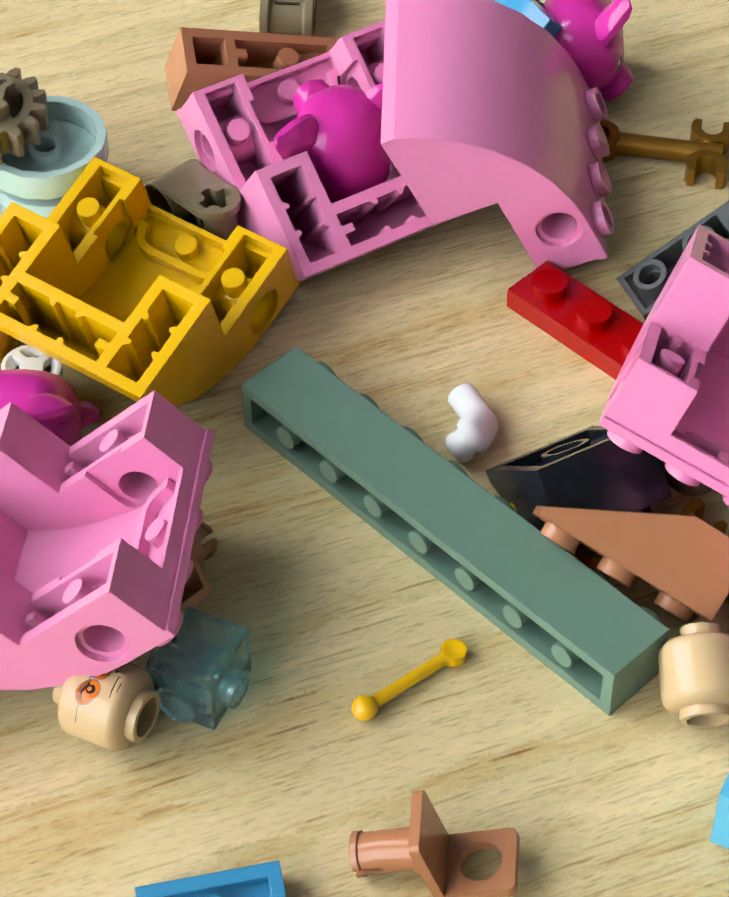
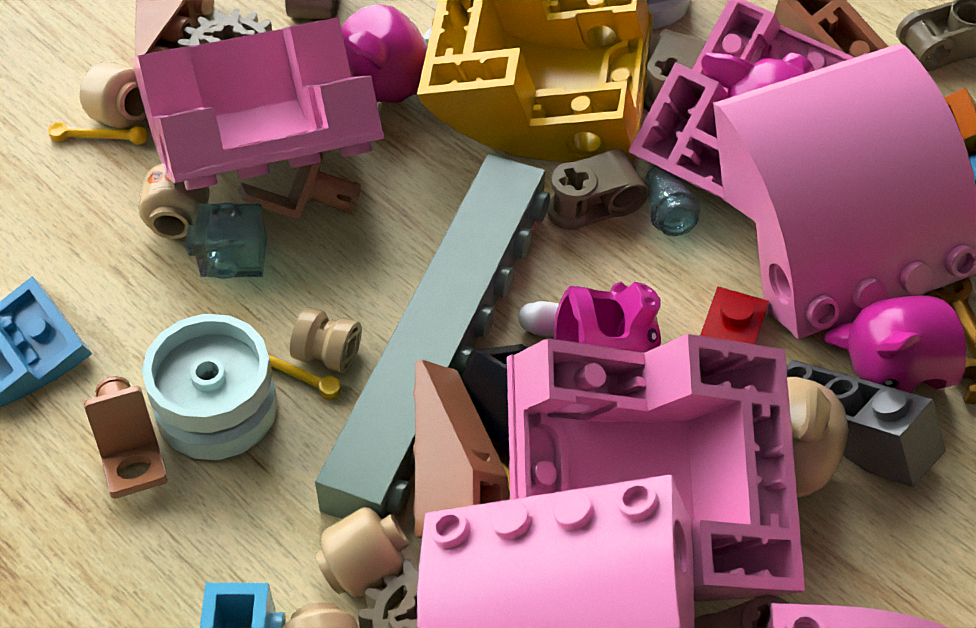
camera: 65 degrees right, 5 degrees up
(328, 324) = (601, 188): none -> dark tan piece
(378, 280) = (671, 203): none -> clear light blue cone
(403, 623) = (325, 339): none -> tan wheel
(428, 726) = (210, 386): none -> light aqua wheel
(543, 380) = (610, 319): none -> dark pink piece
(667, 180) = (905, 343): none -> dark pink piece

